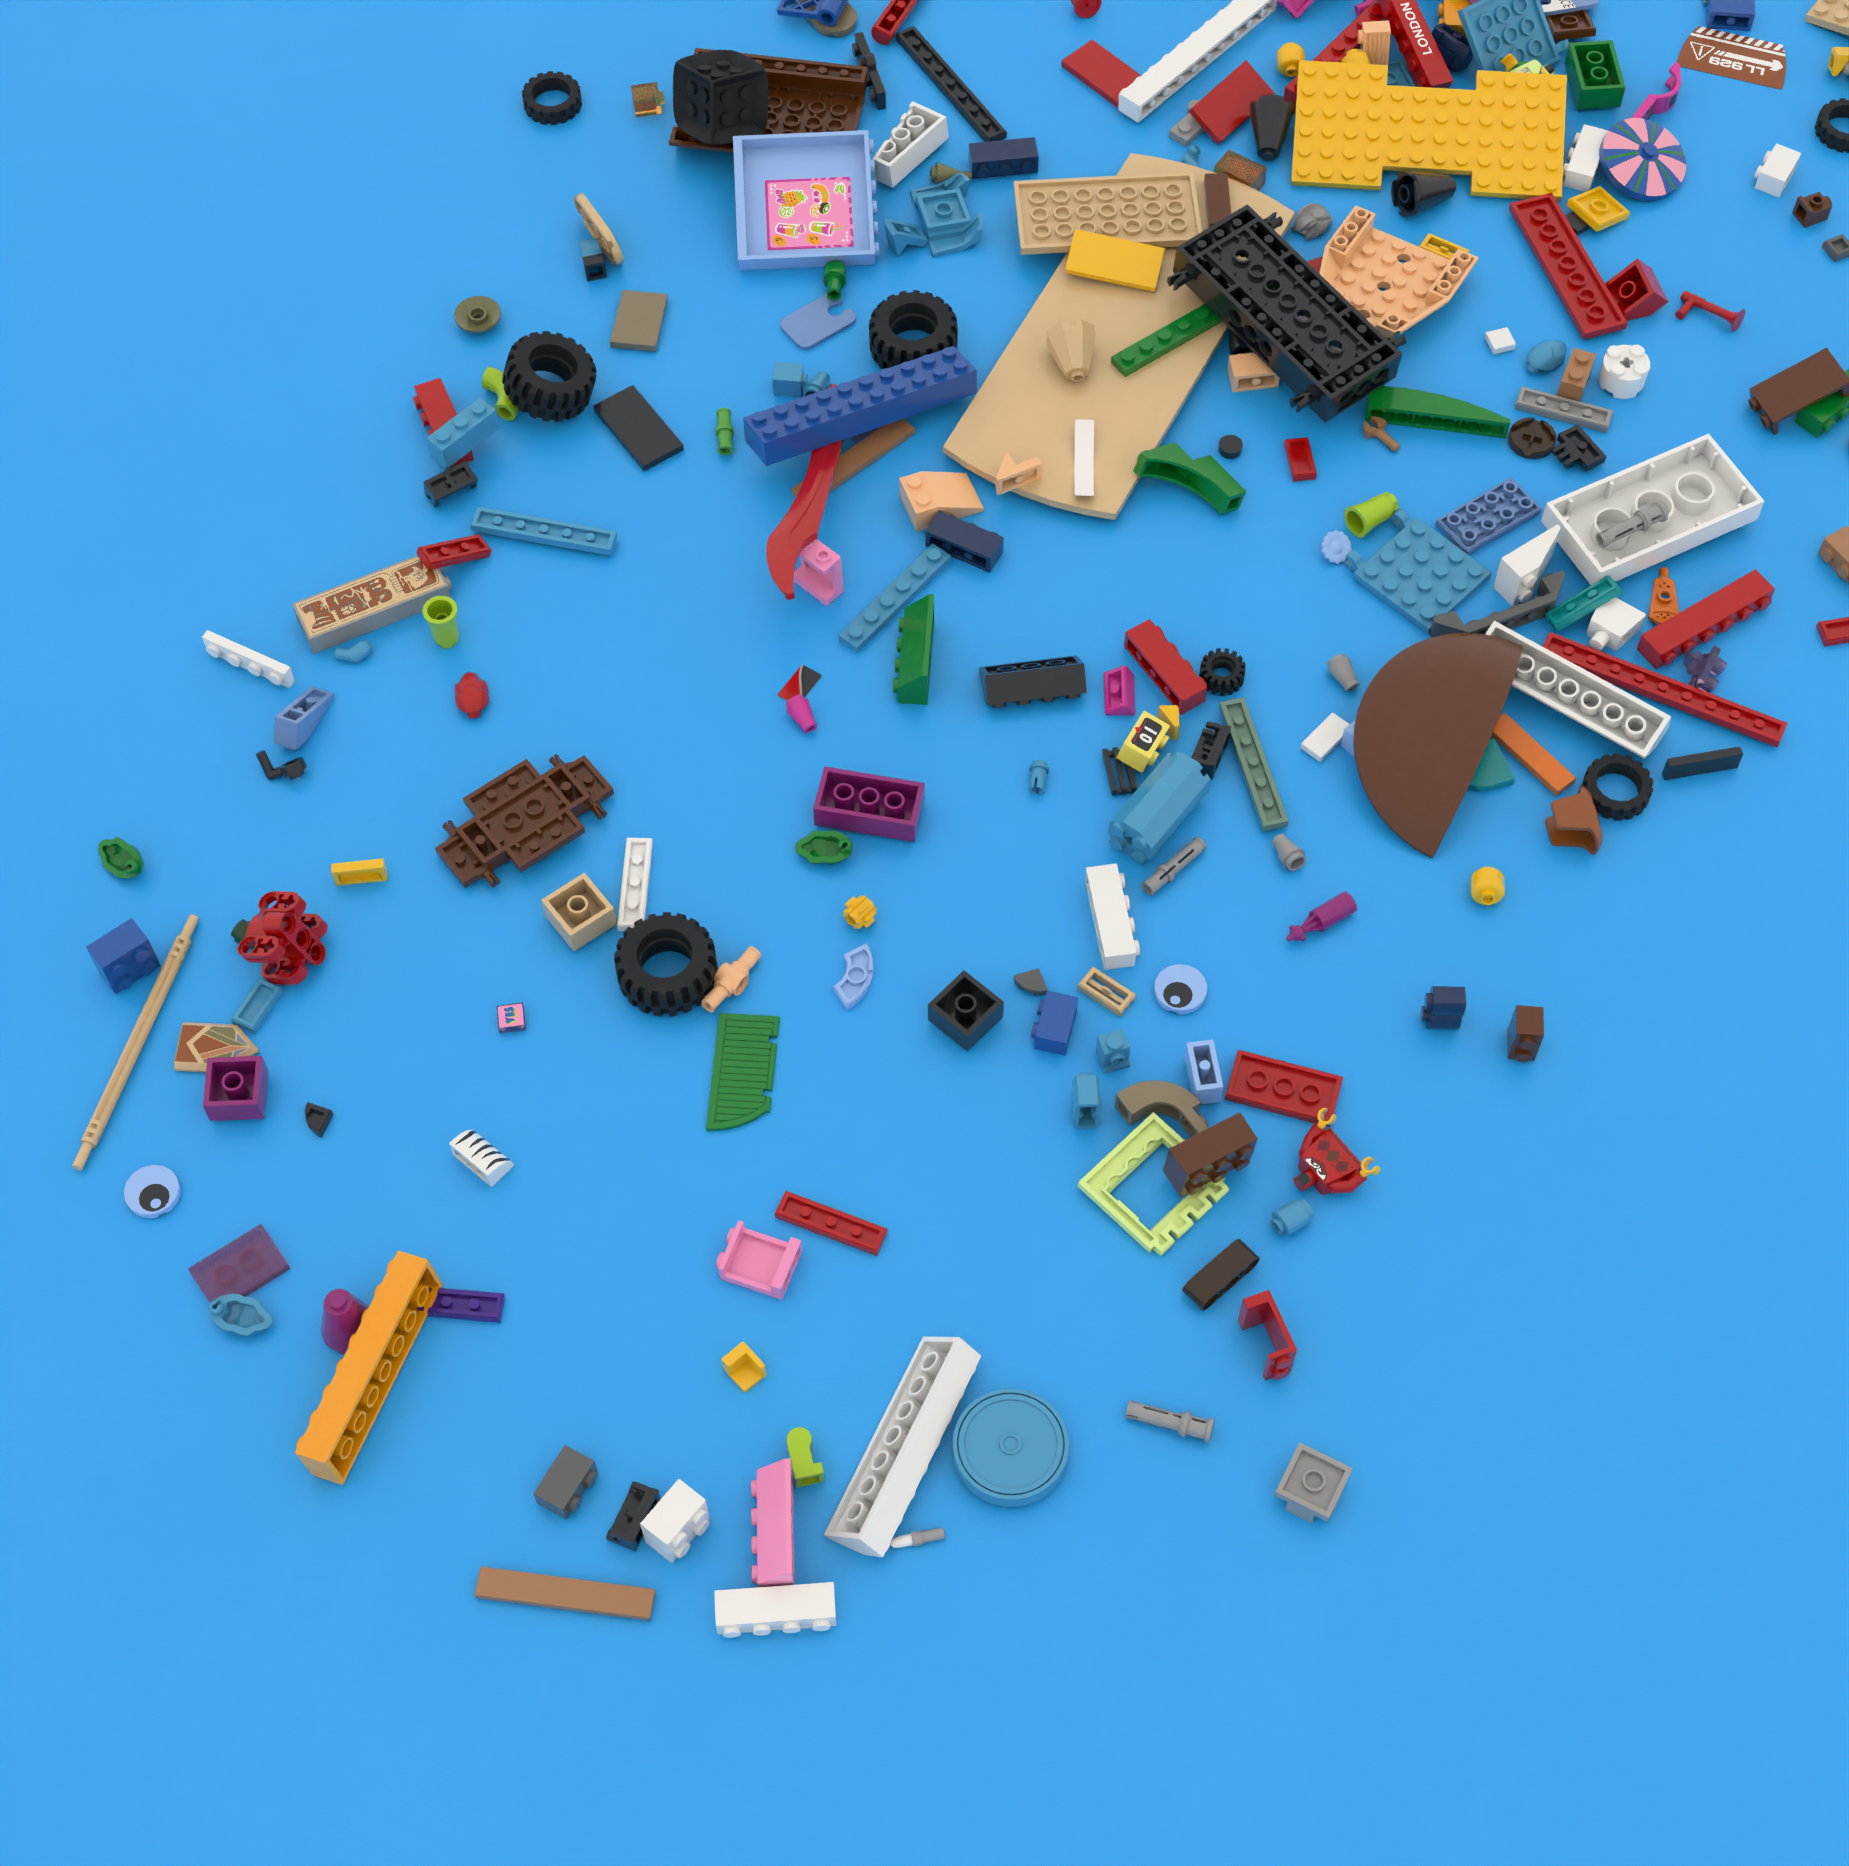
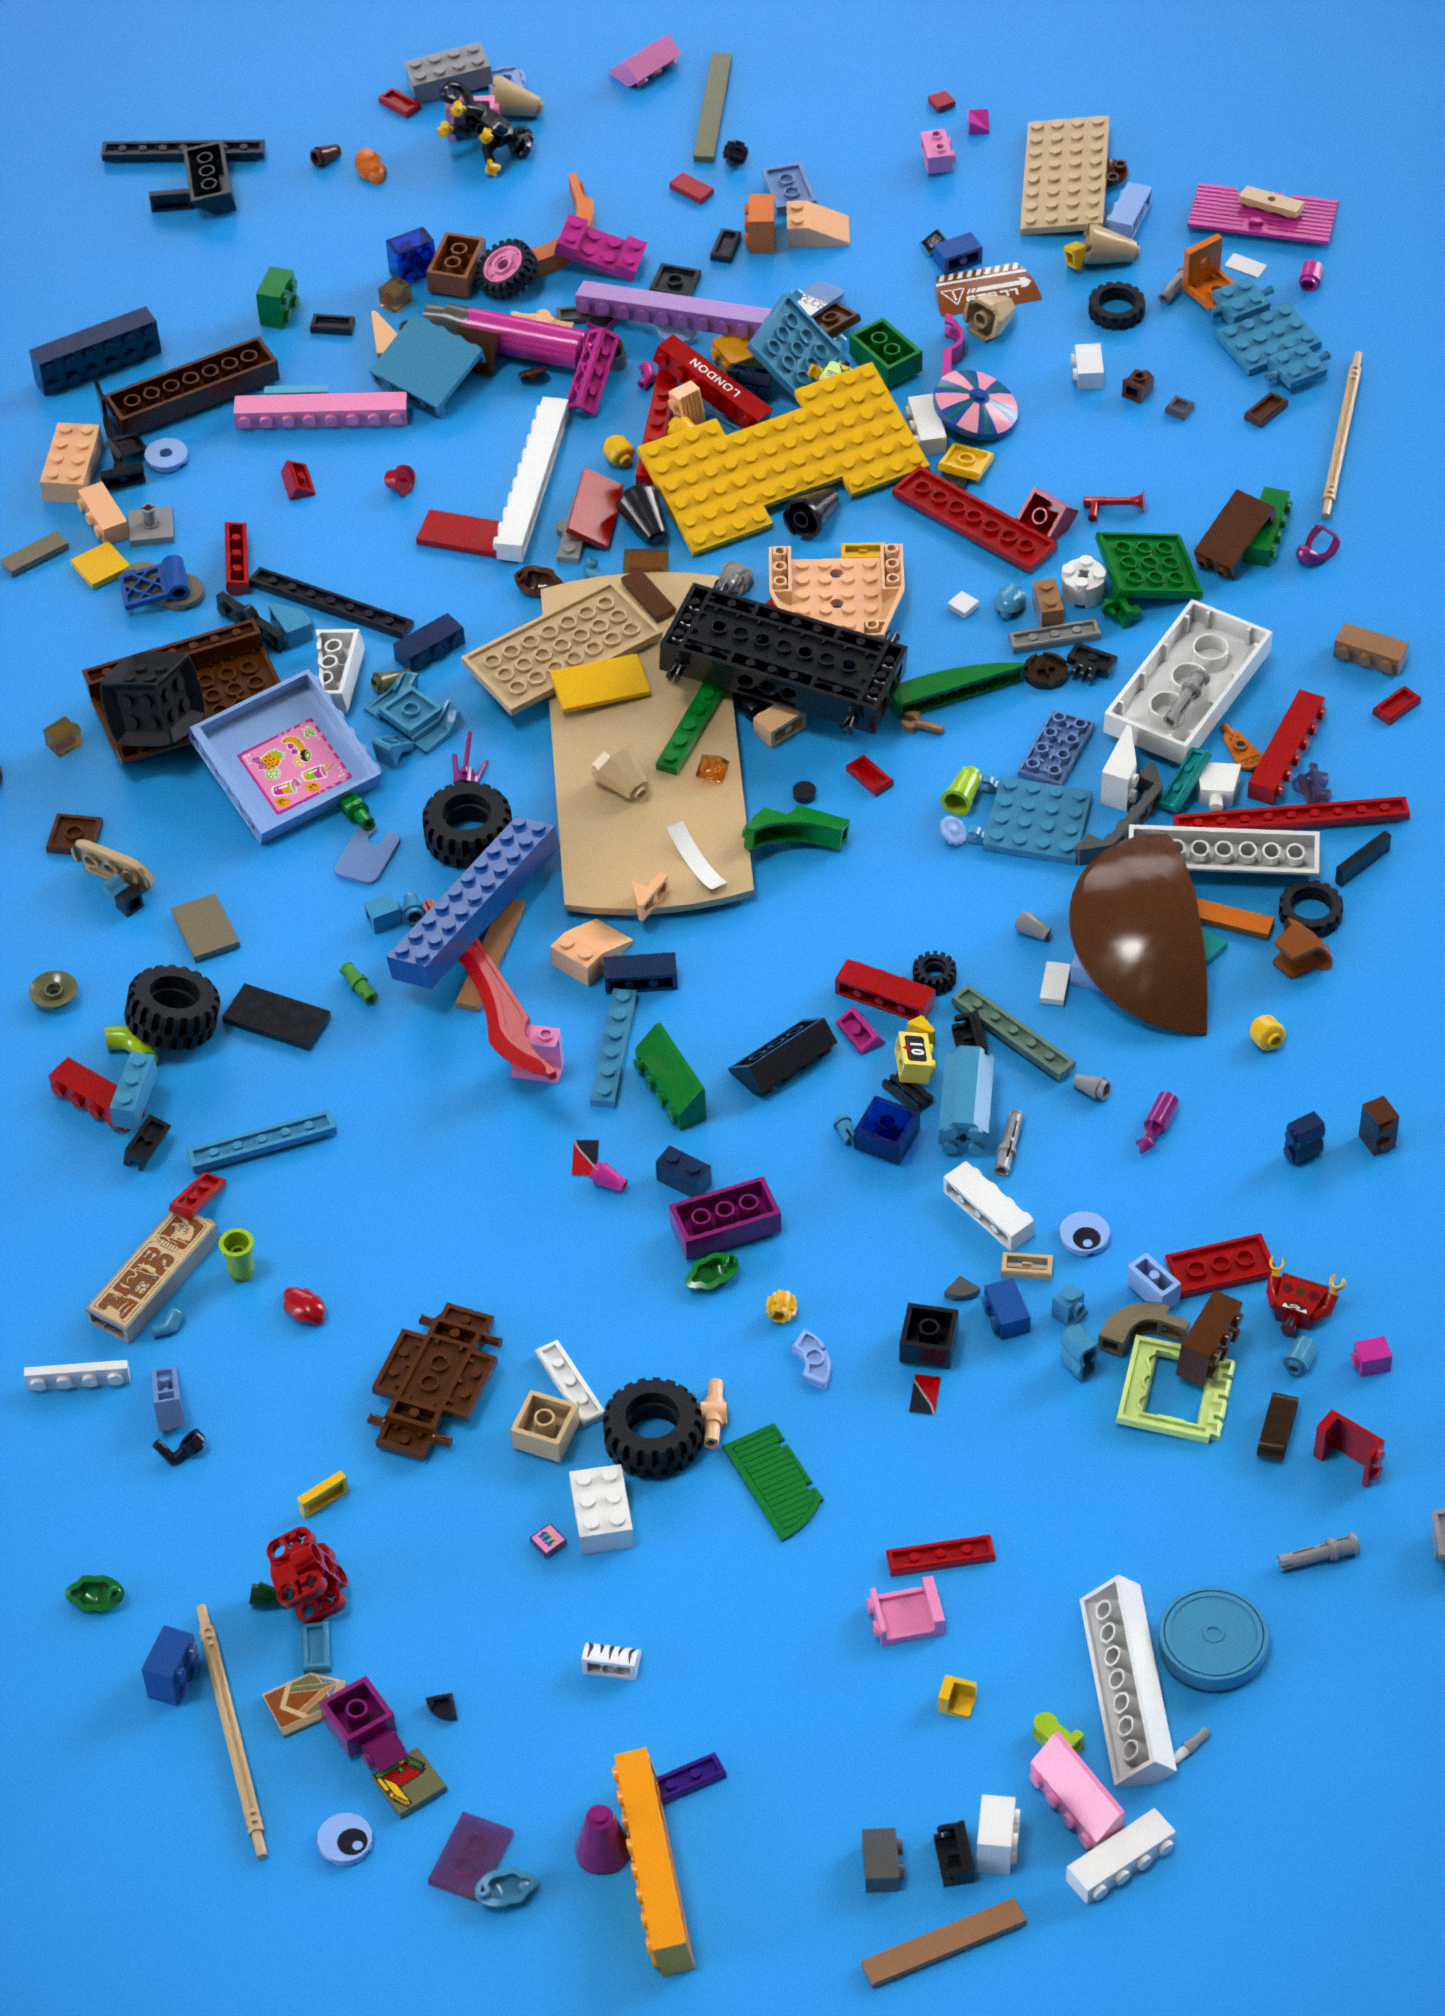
camera: 30 degrees left, 10 degrees down
(233, 1131) = (383, 1751): none -> magenta brick
(239, 1171) = (409, 1783): none -> tile
(571, 1014) = (601, 1509): none -> white brick
(598, 186) = (69, 828): none -> reddish brown tile
(866, 743) = (683, 1172): none -> dark blue brick
(901, 88) = (293, 623): none -> dark azure slope
(929, 1062) = (924, 1394): none -> sticker
(948, 288) = (466, 773): none -> magenta plant
(1069, 797) = (887, 1130): none -> clear blue brick
(1134, 141) = (533, 578): none -> reddish brown arm
(1157, 385) = (712, 768): none -> clear orange slope
(1358, 1255) = (1371, 1356): none -> dark pink brick
(1640, 410) = (1121, 609): none -> green hips
(1697, 383) = (1148, 565): none -> green tile
(1716, 81) = (988, 315): none -> tan cone

